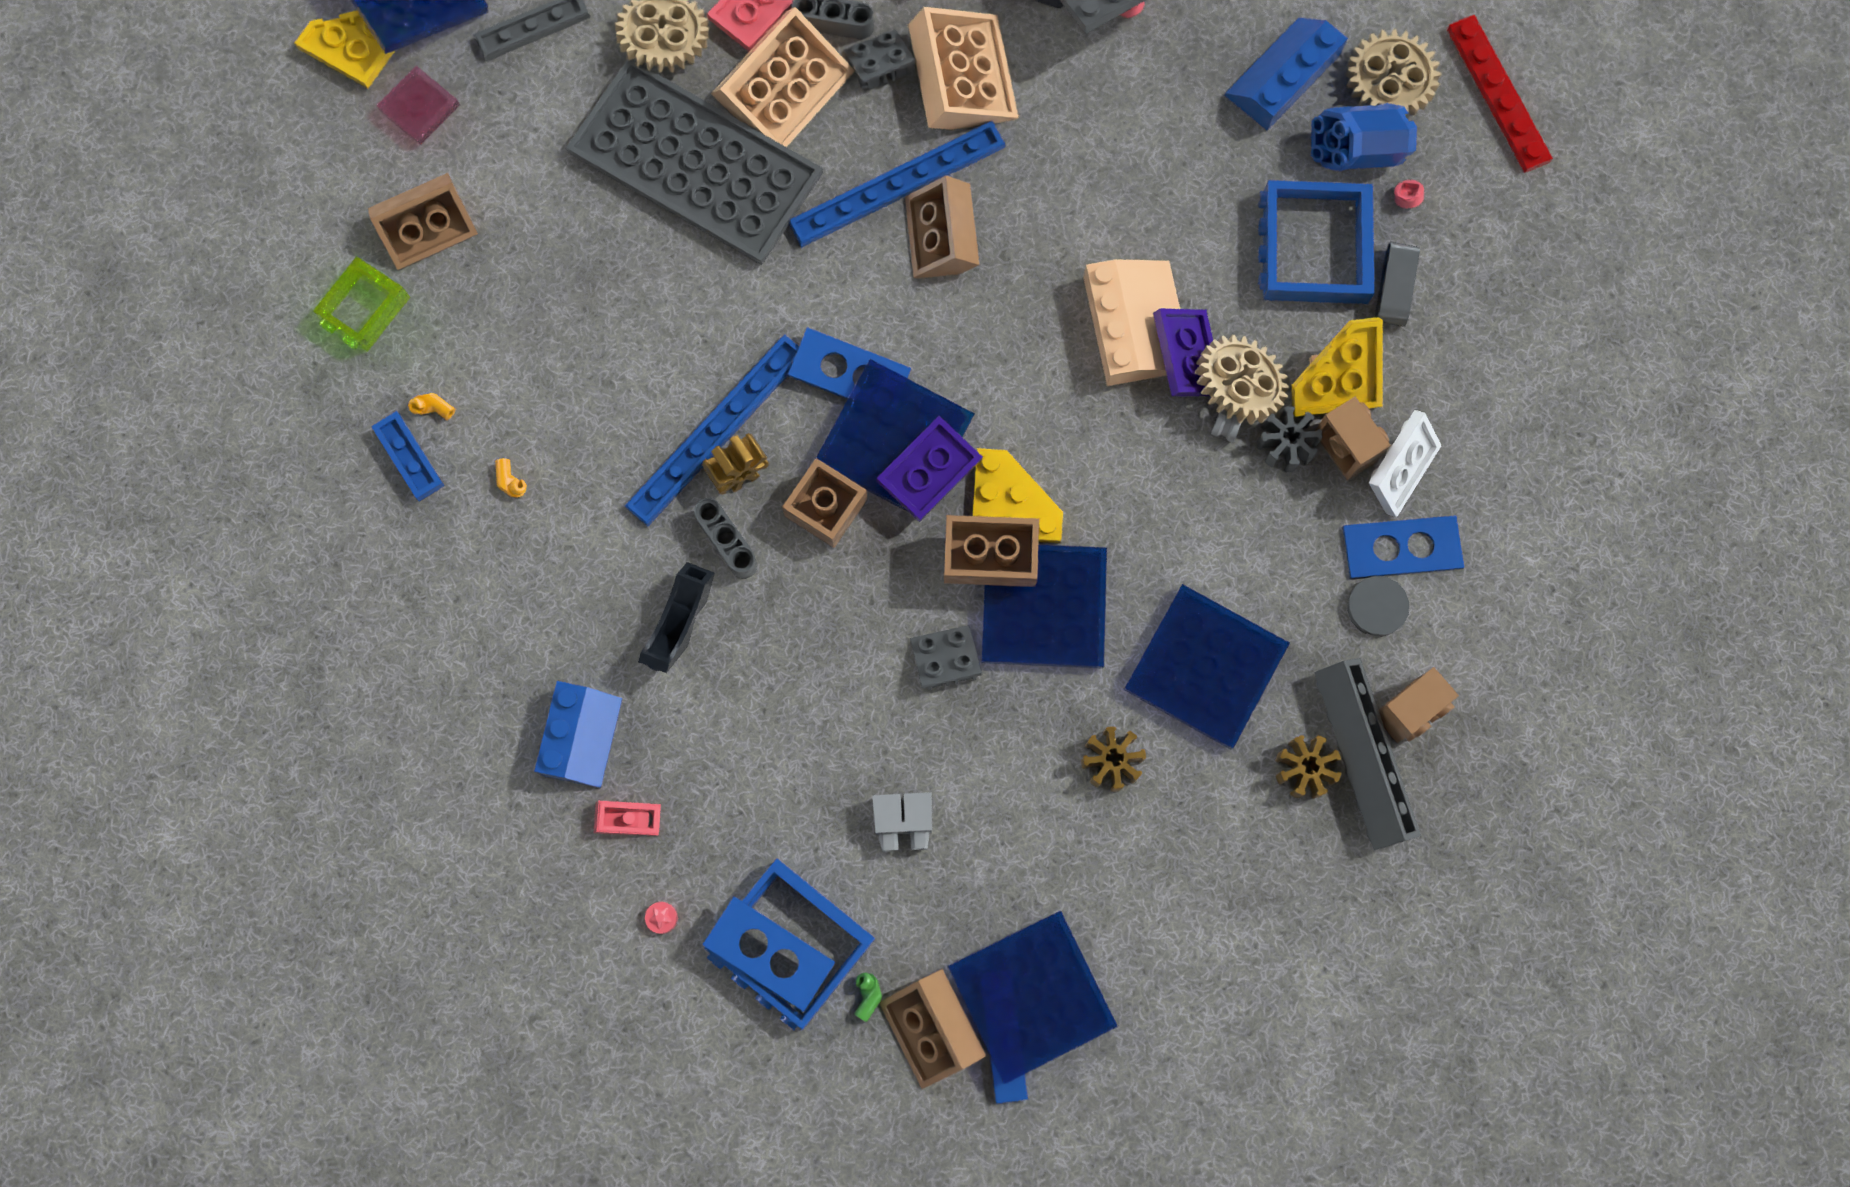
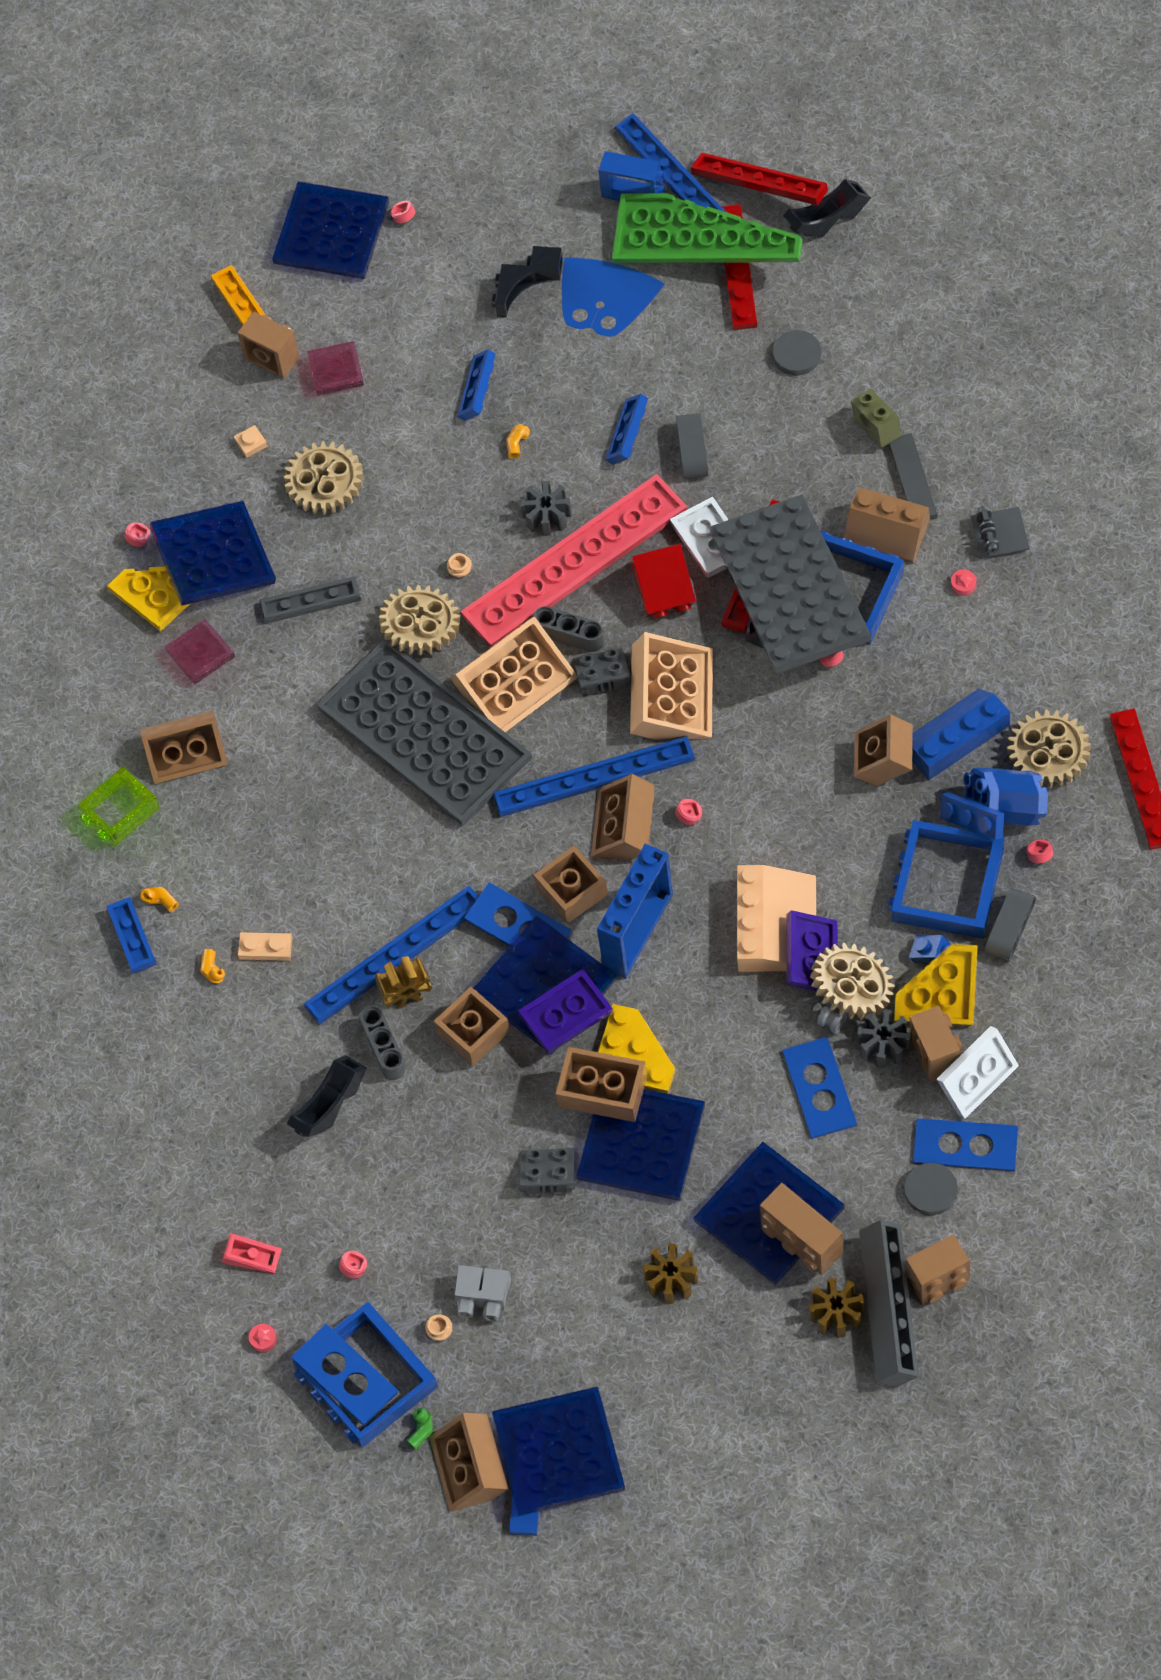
camera: 20 degrees right, 15 degrees down
(565, 444) = (265, 946): none -> light nougat plate
(578, 734) = (225, 1179): slope -> none
(747, 811) = (353, 1264): none -> coral tile
(862, 869) = (438, 1327): none -> light nougat plate
(901, 316) = (570, 884): none -> medium nougat brick
(987, 337) = (635, 910): none -> blue window
(1012, 208) = (688, 812): none -> coral tile
(1218, 104) = (883, 750): none -> medium nougat brick
(1235, 547) = (818, 1121): none -> blue piece
(1258, 689) = (801, 1229): none -> medium nougat brick
(1316, 326) = (927, 948): none -> blue bracket
(1333, 165) = (972, 815): none -> blue plate

